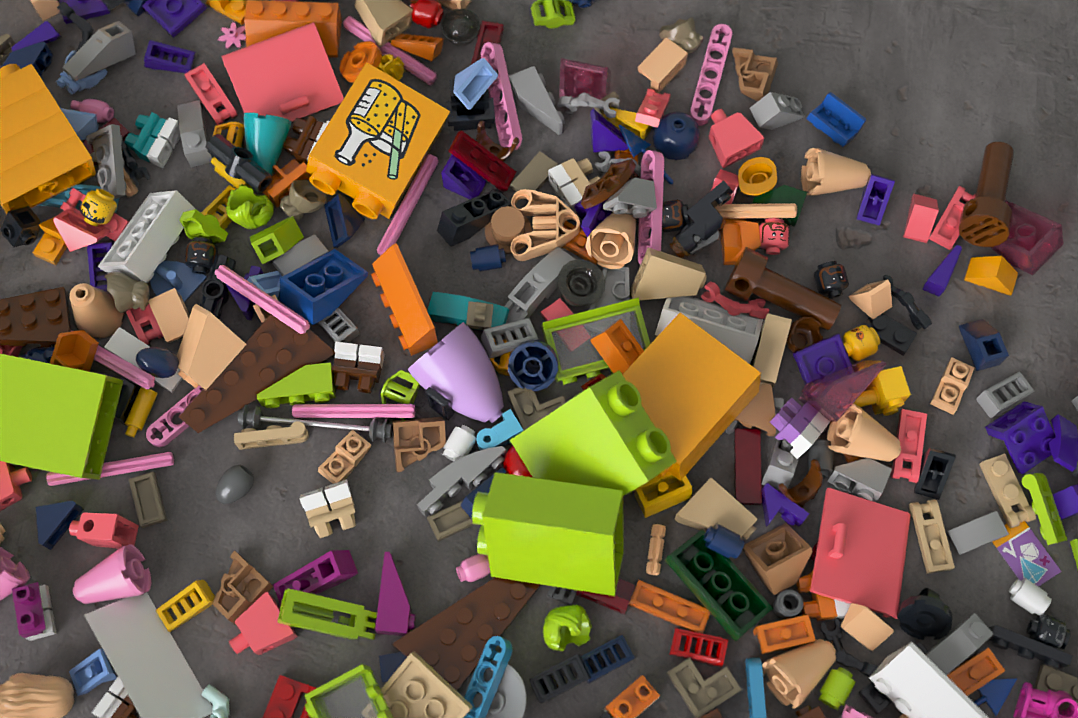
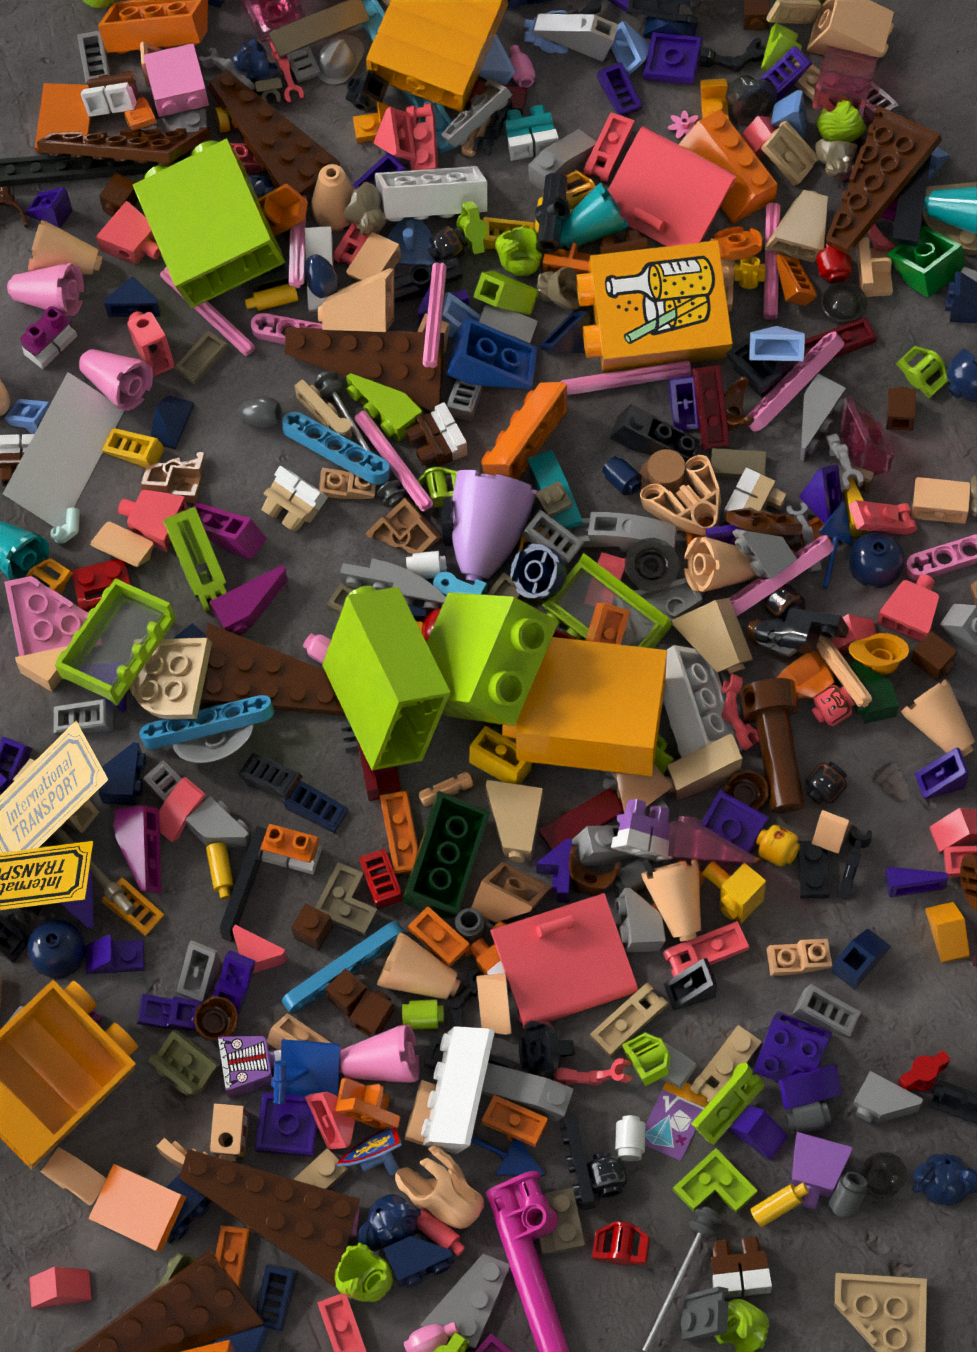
camera: 60 degrees right, 5 degrees down
(98, 207) = (425, 133): yellow head -> none
(143, 28) = (629, 47): none -> light blue slope
(185, 559) = (170, 420): none -> dark blue slope
(268, 668) = (123, 544): none -> light nougat slope
(298, 446) = (371, 468): none -> dark azure beam
(566, 626) = (321, 755): lime hair -> none
(572, 43) = (901, 408): none -> reddish brown brick
(723, 541) = (487, 832): dark blue brick -> none
(780, 146) = (934, 656): none -> reddish brown brick
(963, 589) = (571, 1077): none -> coral piece
(979, 541) = (648, 1057): none -> lime piece

